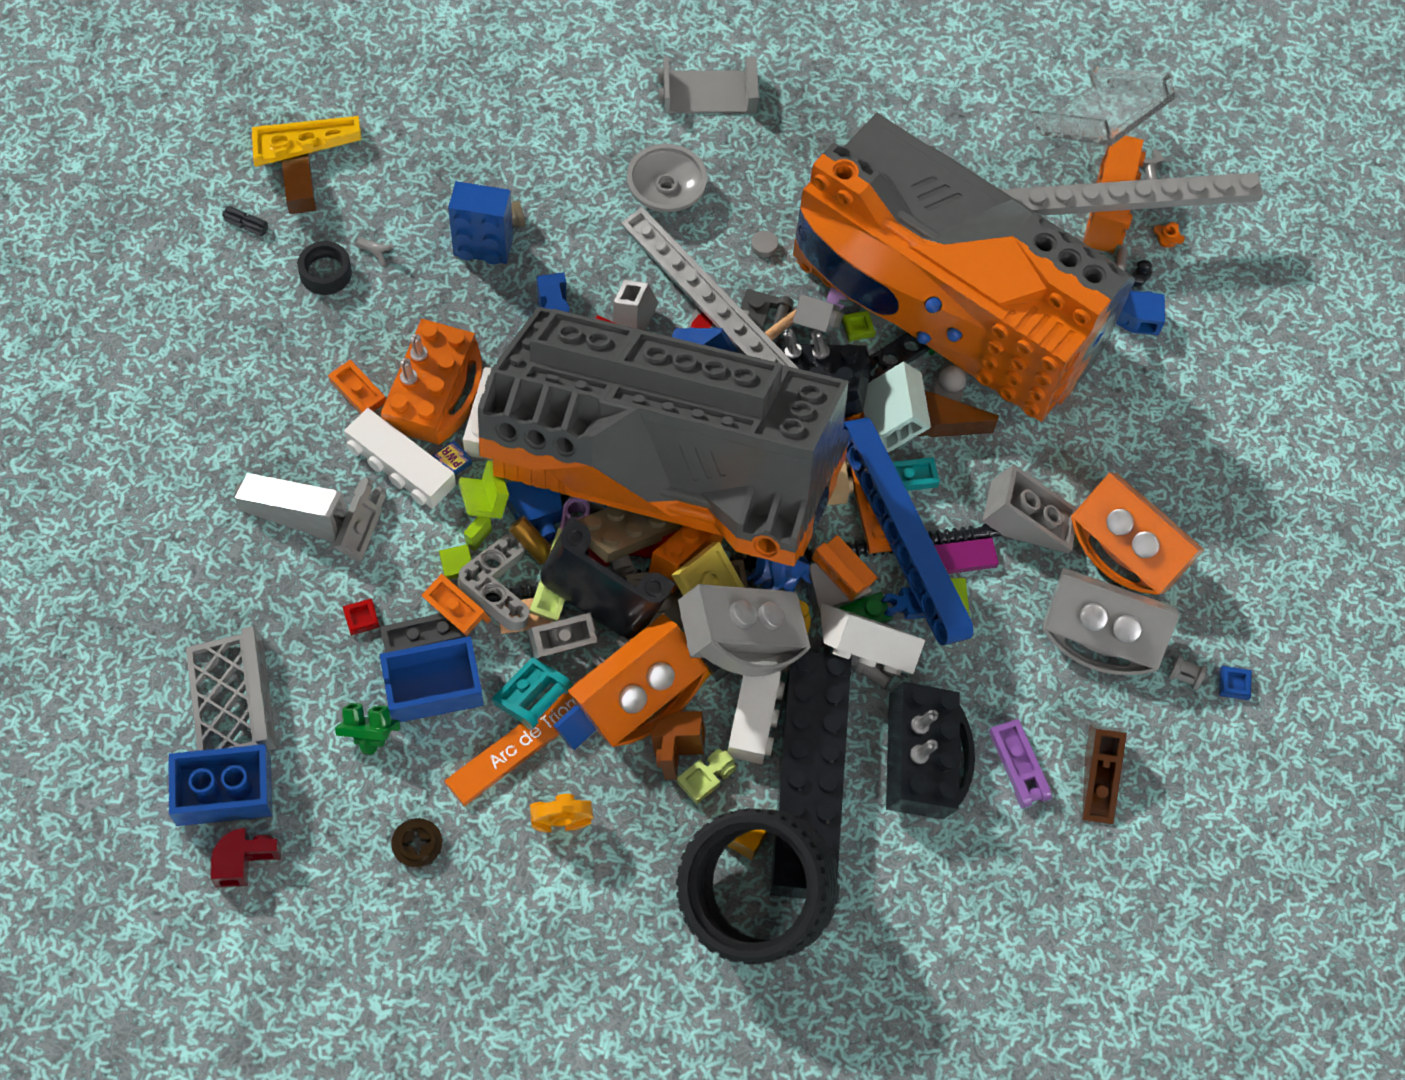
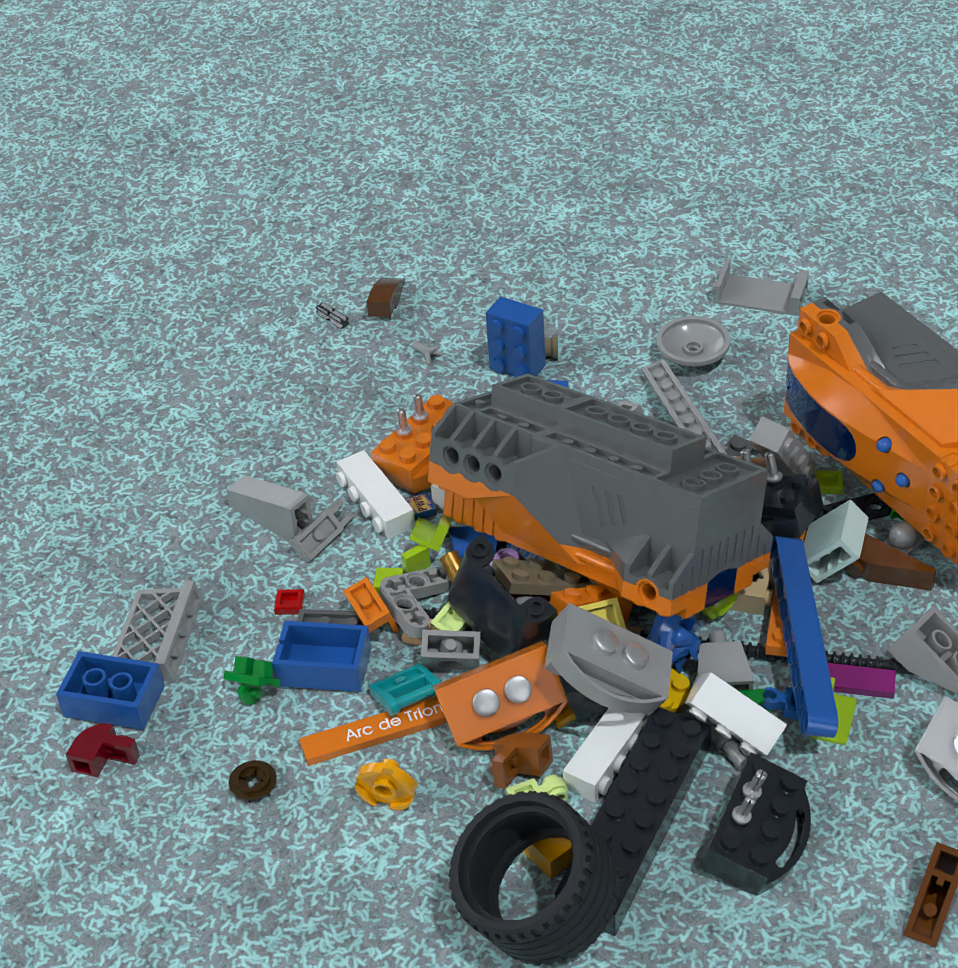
camera: 30 degrees right, 20 degrees down
(294, 139) = (398, 268): yellow wing -> none
(326, 285) = (381, 366): black tyre -> none
(356, 387) = (362, 436): orange plate -> none
(574, 727) = (431, 725): blue tile -> none
(764, 244) = (765, 407): light grey tile -> none
(834, 297) = (816, 454): lavender hinge -> none
(843, 567) = (731, 651): orange panel -> none
(918, 473) = (837, 603): teal plate -> none
(1020, 763) = (853, 864): medium lavender plate -> none

